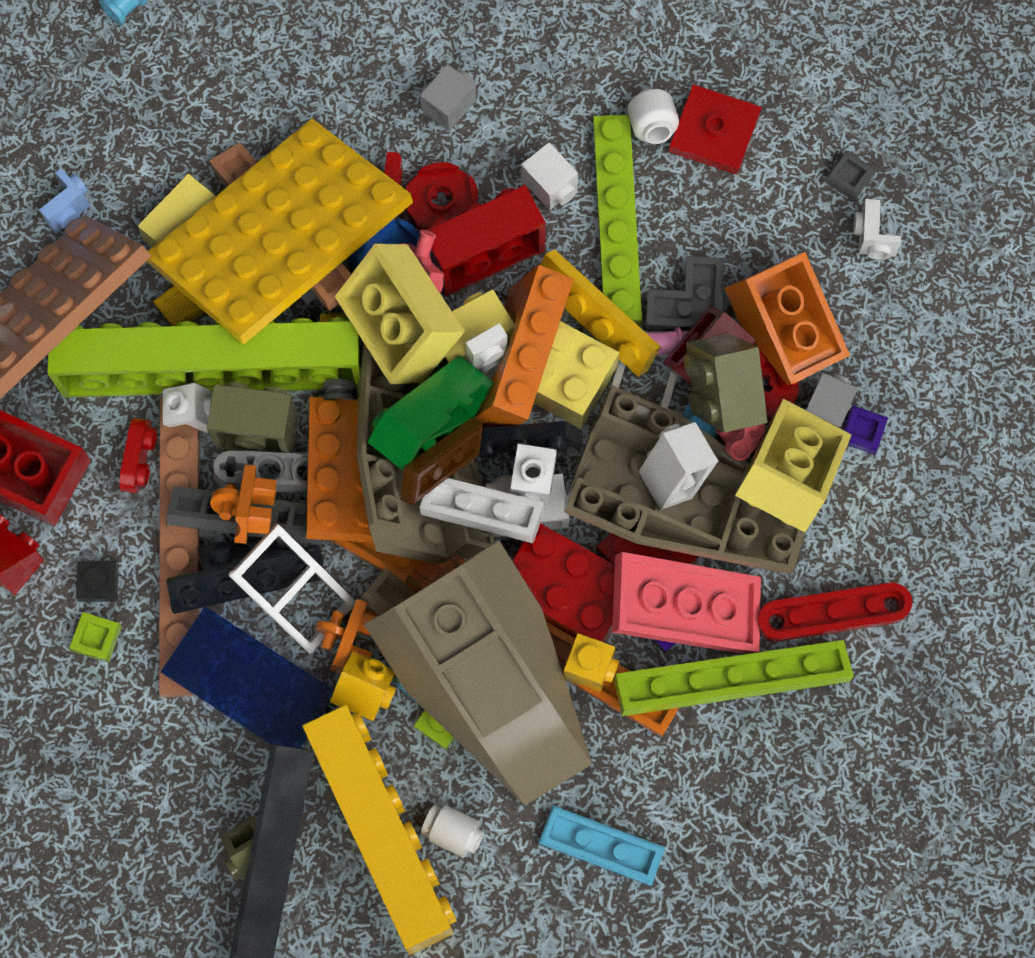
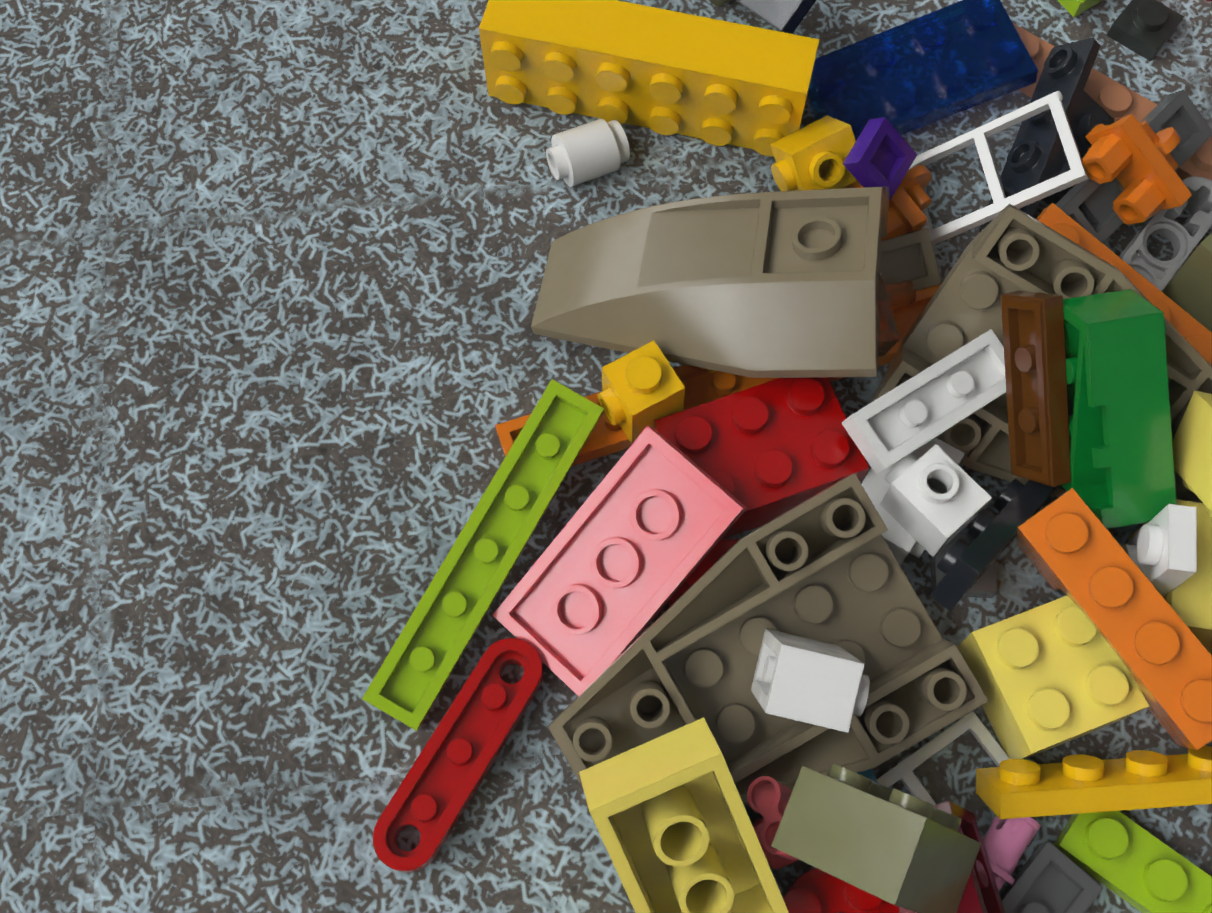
camera: 130 degrees right, 5 degrees down
(348, 643) = (880, 156): none -> dark purple plate
(602, 845) = (440, 284): medium azure tile -> none

